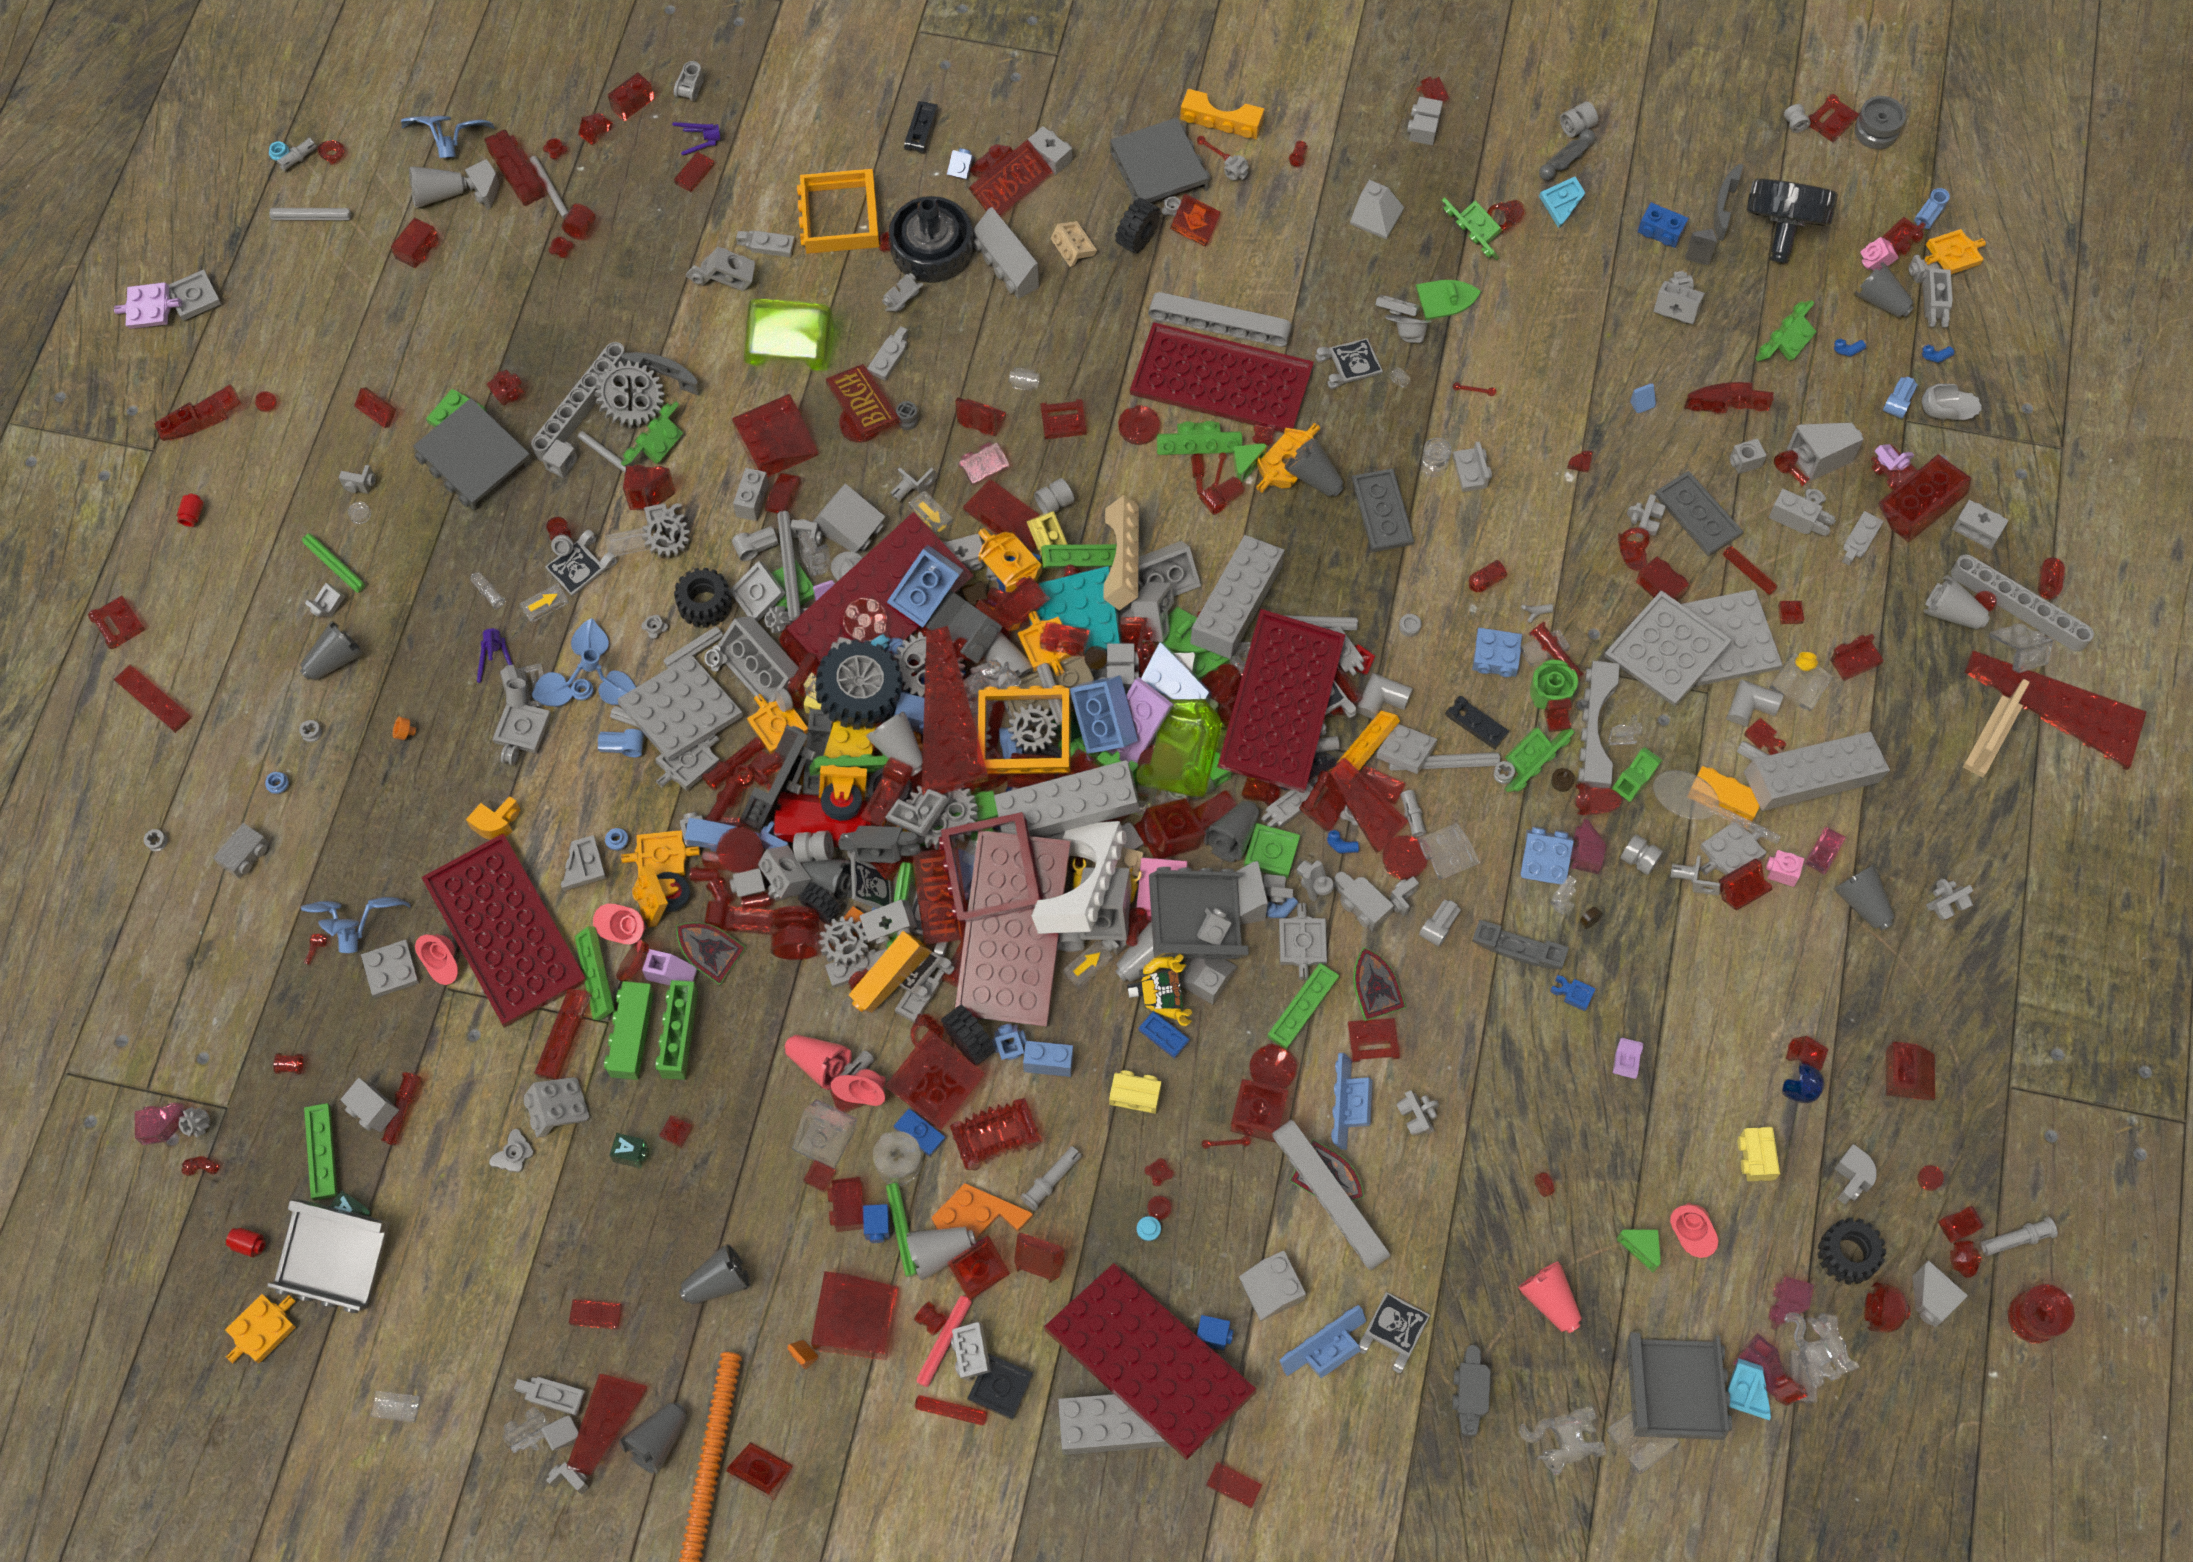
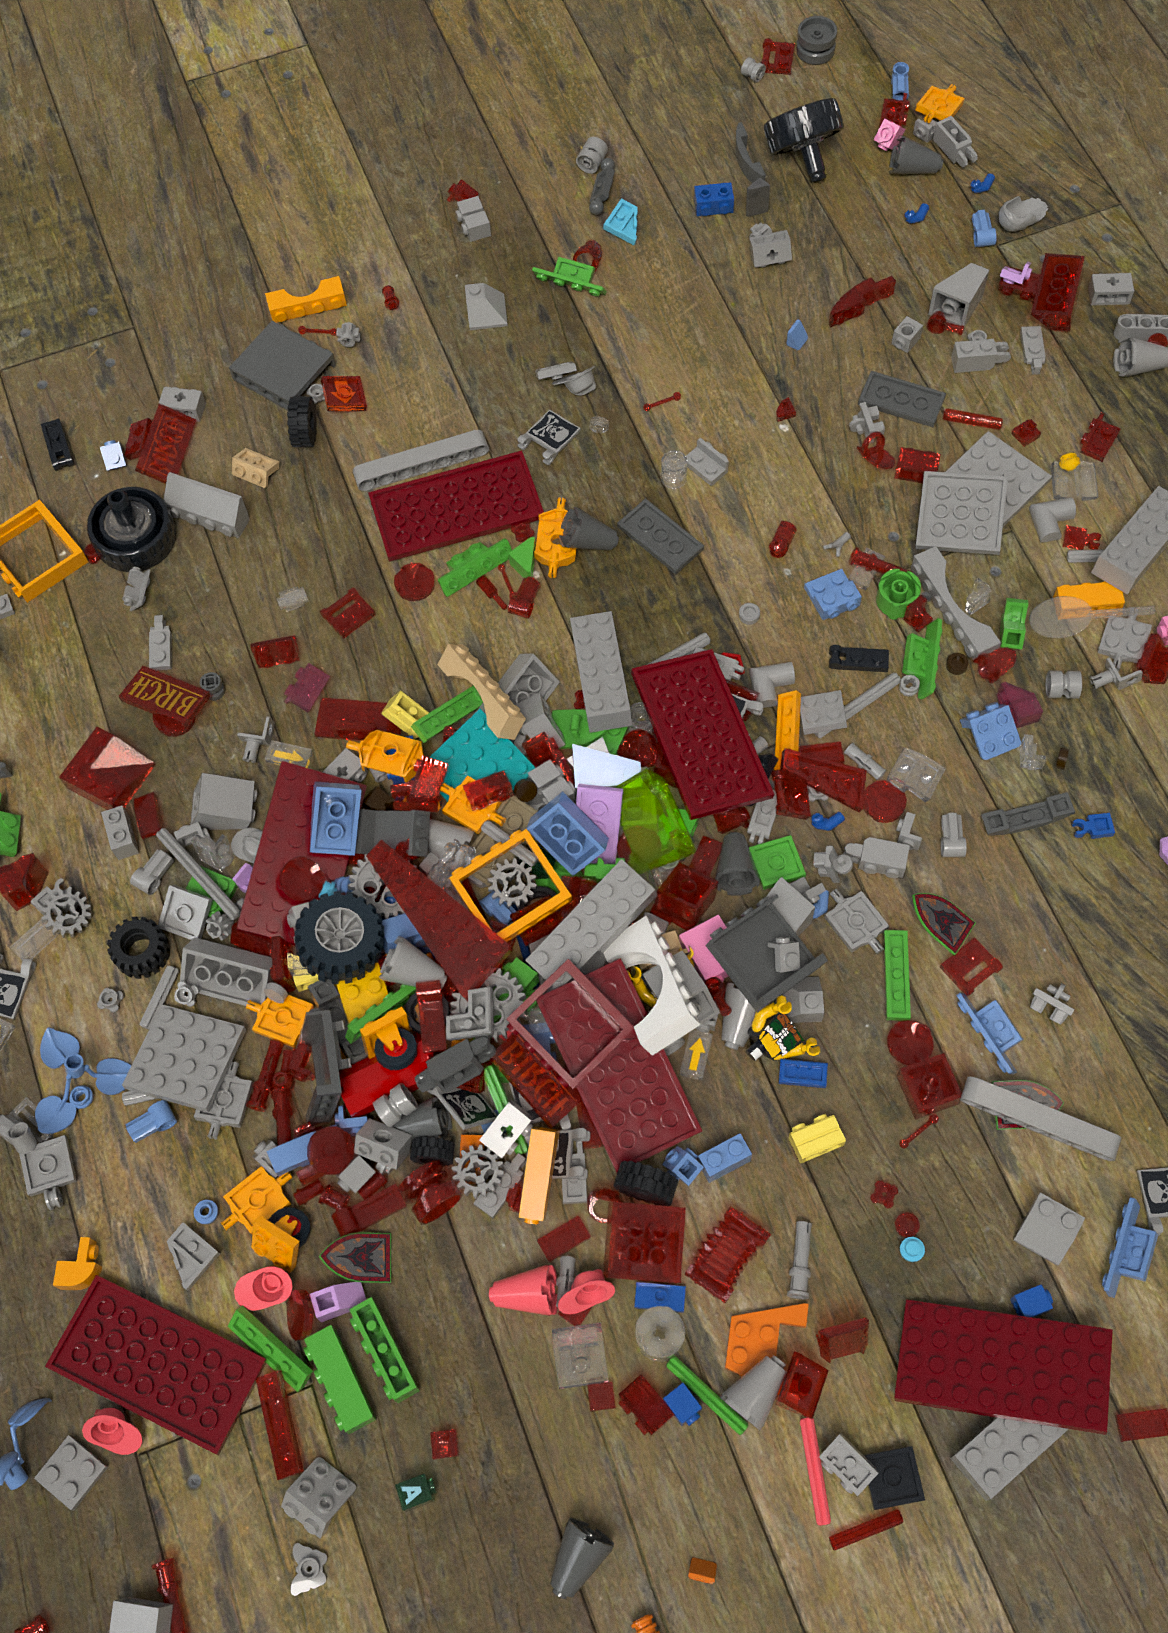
camera: 30 degrees left, 0 degrees up
(789, 332) = (58, 675): clear neon green windscreen -> none
(854, 1316) = (725, 1504): clear red slope -> none
(876, 1039) = (563, 1239): none -> clear red tile
(929, 1317) = (791, 1458): clear red wheel -> none
(1056, 495) = (387, 680): light grey wheel -> none
(1446, 297) = (587, 344): bright green shield -> none
(1791, 335) = (868, 228): bright green bracket -> none

